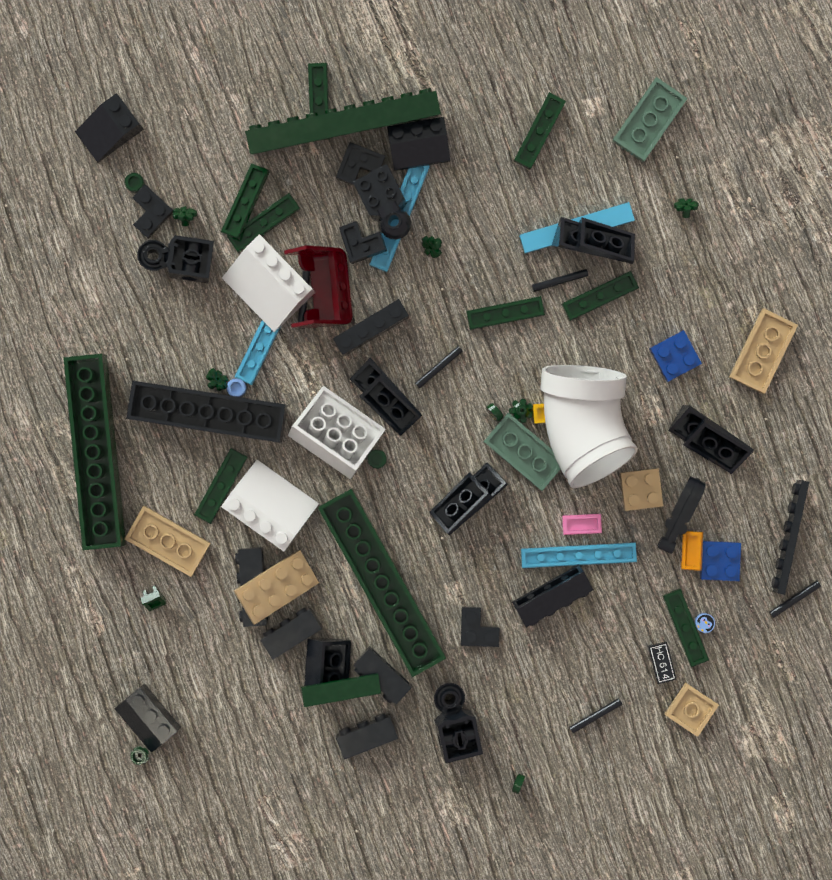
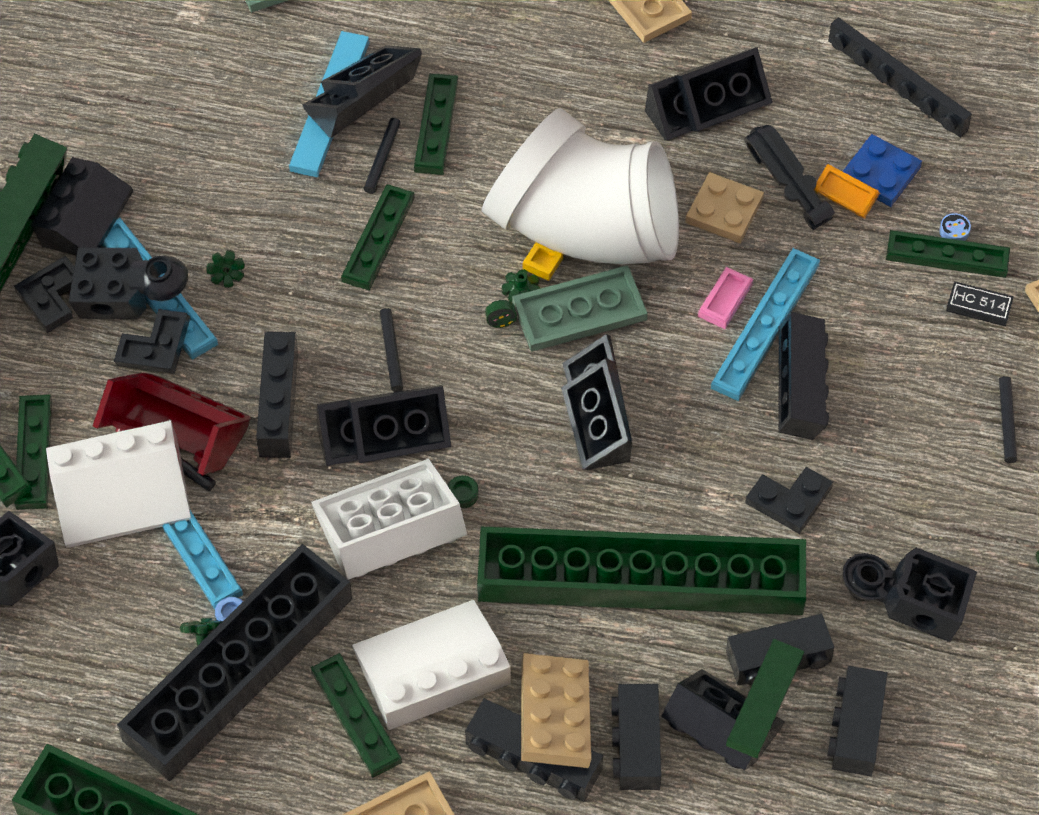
camera: 55 degrees left, 30 degrees down
(539, 131) = (176, 77): dark green plate -> none
(675, 356) = (574, 84): blue plate -> none
(794, 599) = (986, 117): black bar -> none

